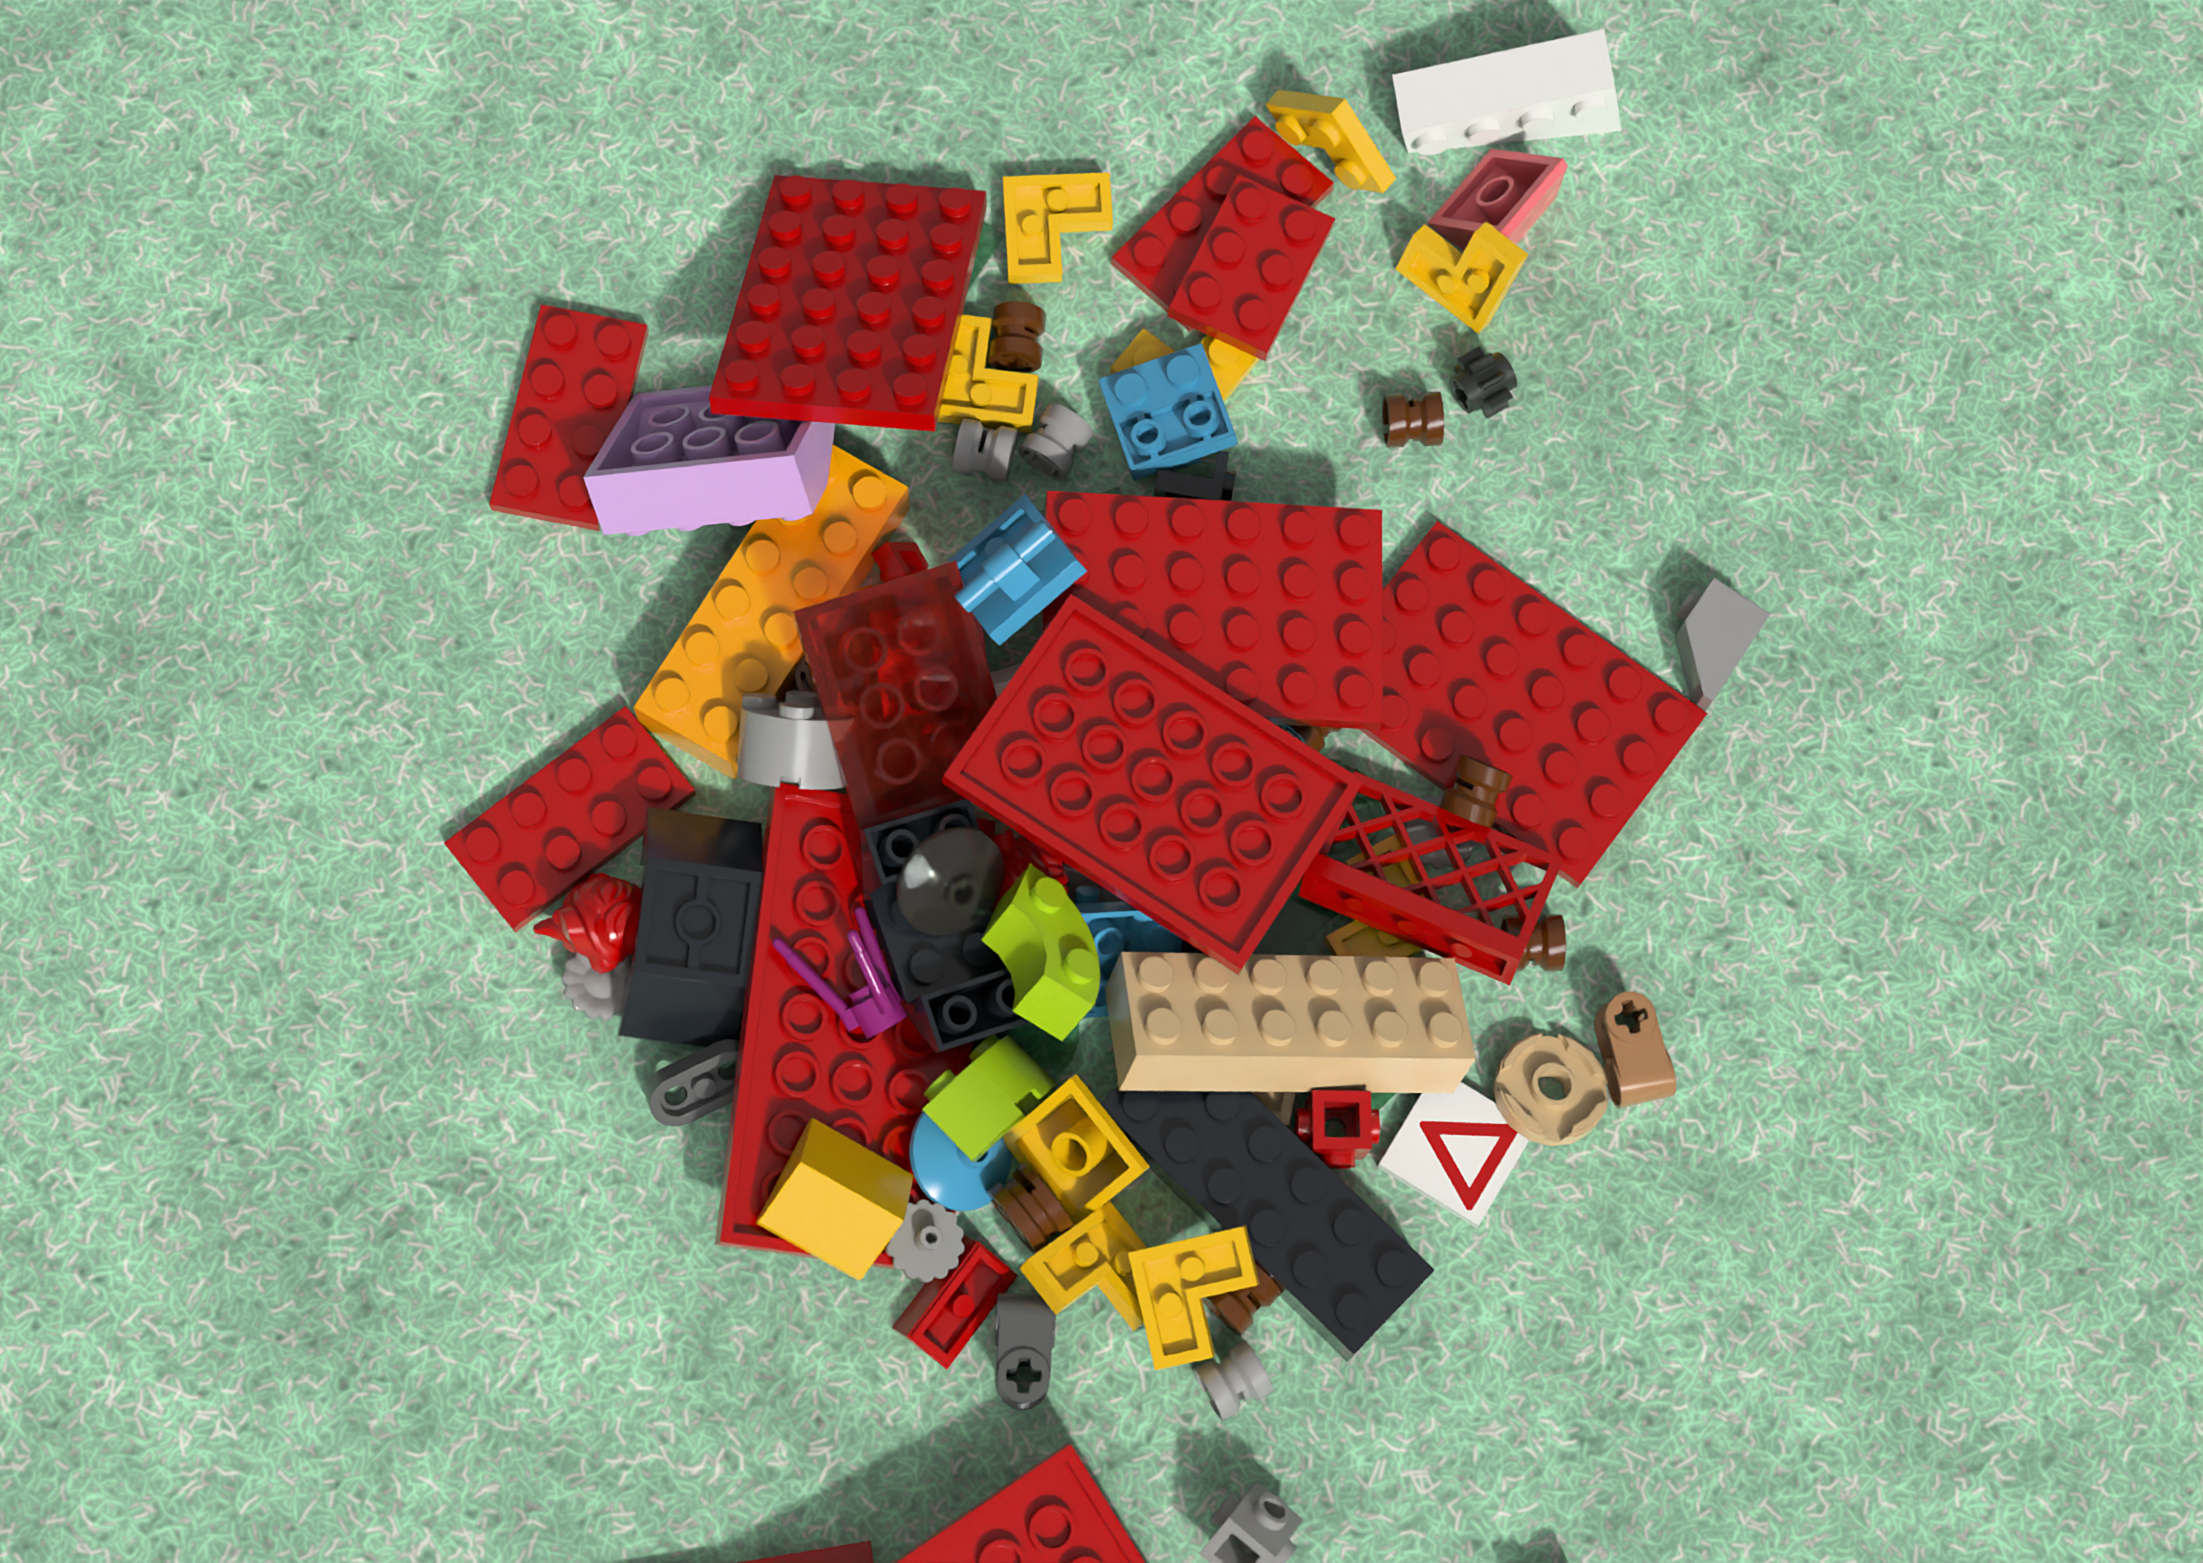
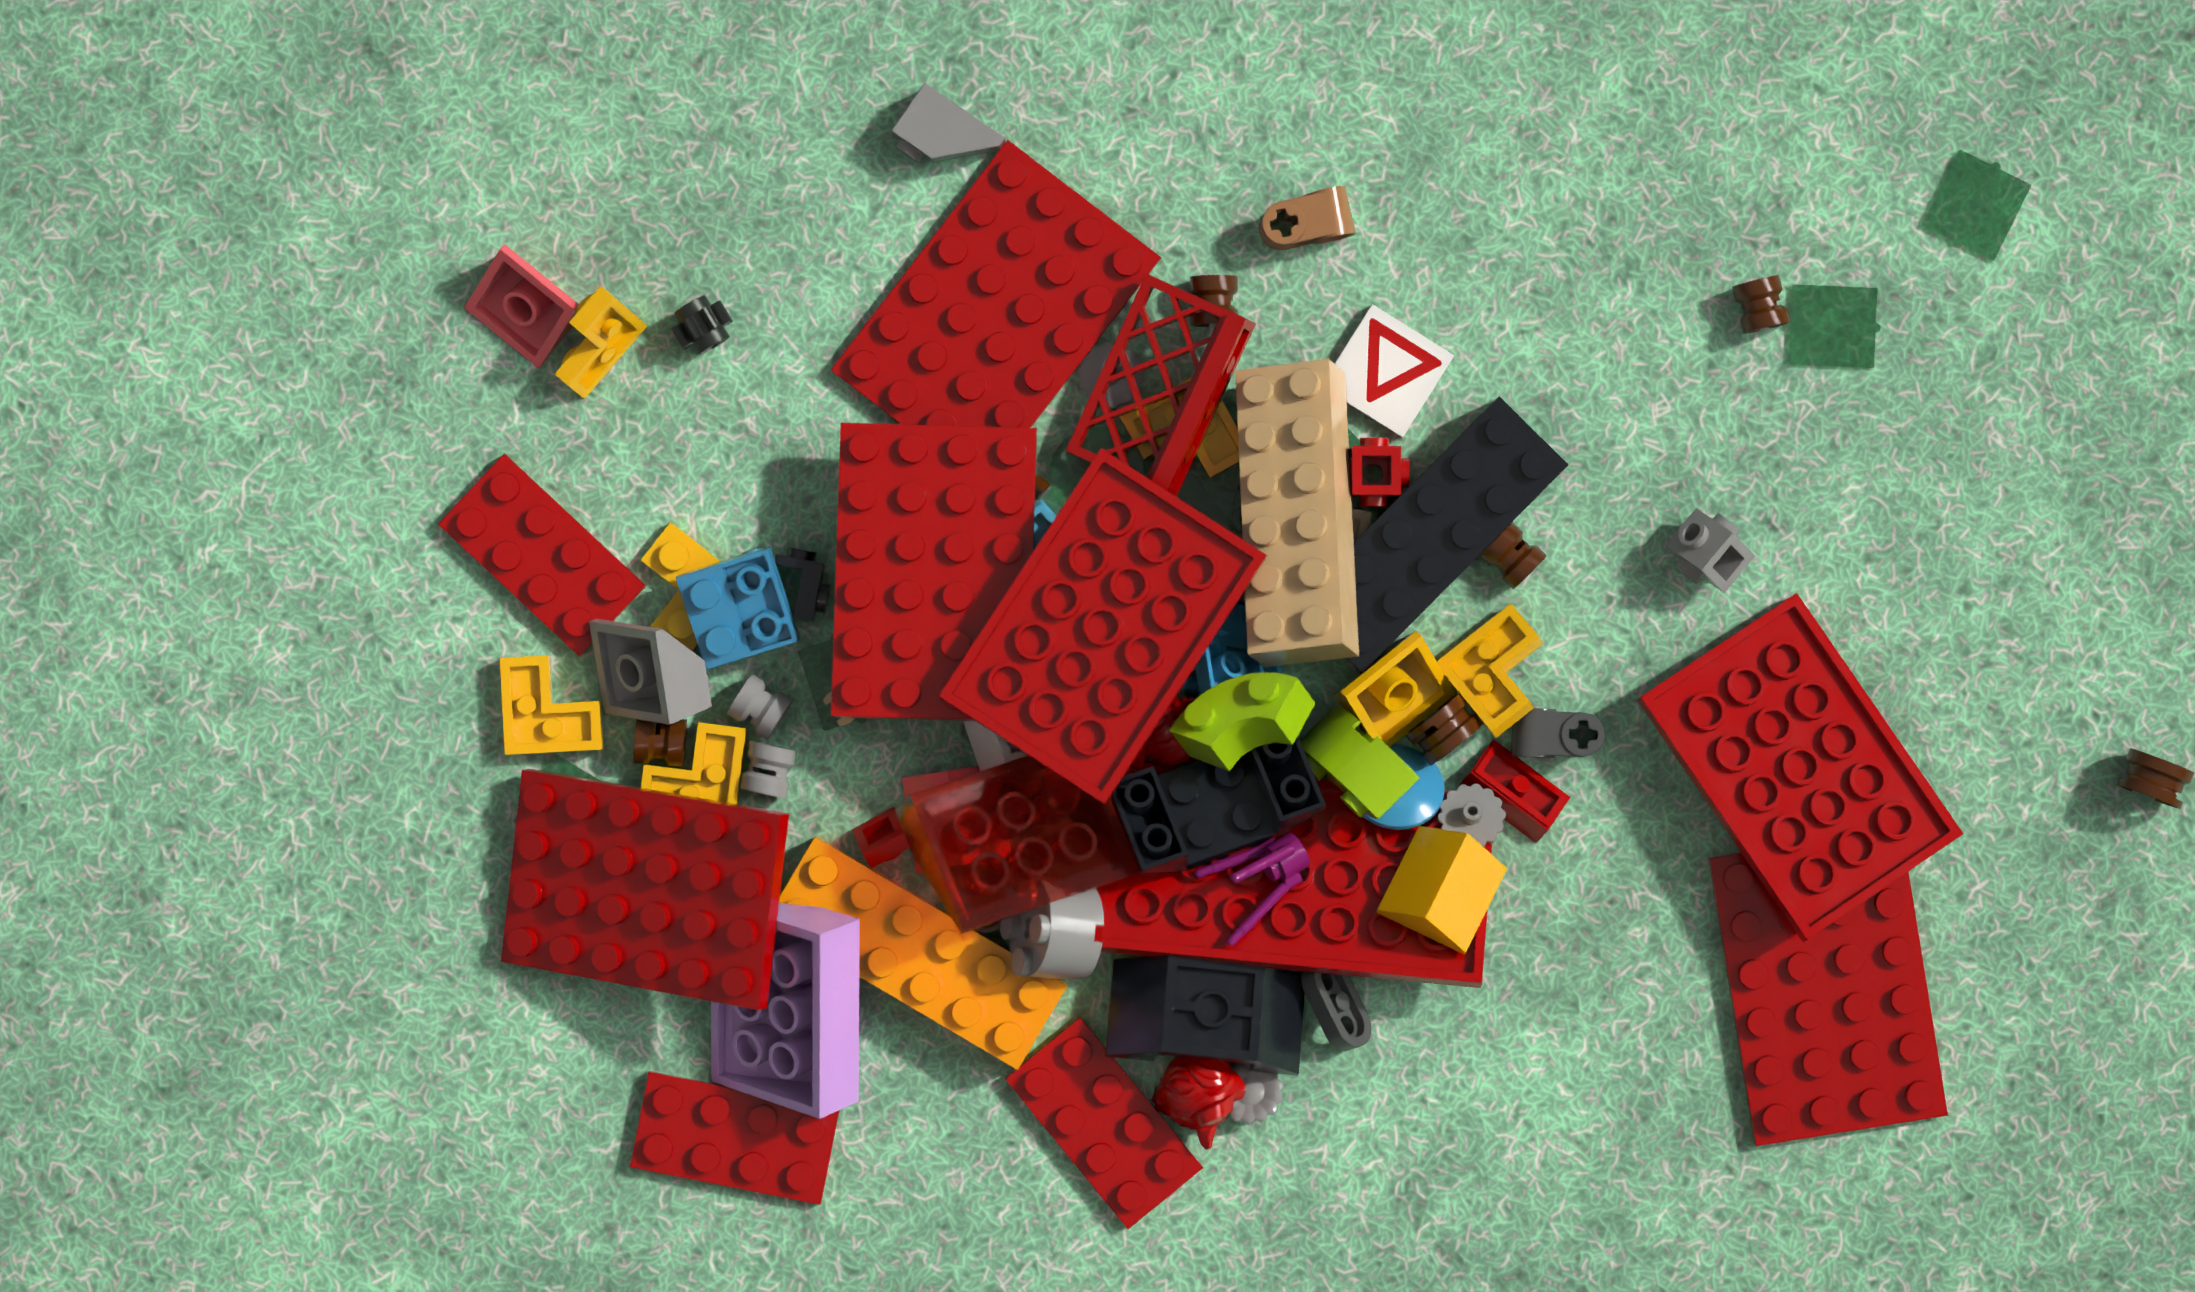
camera: 85 degrees left, 15 degrees up
(938, 869) = (1179, 797): clear smoke dish -> none
(1014, 570) = (909, 745): dark azure plate -> none
(1091, 322) = (647, 673): none -> light grey slope
(1174, 1281) = (1507, 608): yellow plate -> none
(1233, 1380) = (1583, 563): light grey wheel -> none
(1251, 267) = (595, 530): red plate -> none
(1333, 126) = (469, 457): yellow plate -> none
(1413, 419) = (736, 388): reddish brown wheel -> none
(1475, 791) = (1087, 347): reddish brown wheel -> none
(1510, 96) = (424, 292): white wedge -> none
(1532, 1112) = (1355, 313): tan tile -> none

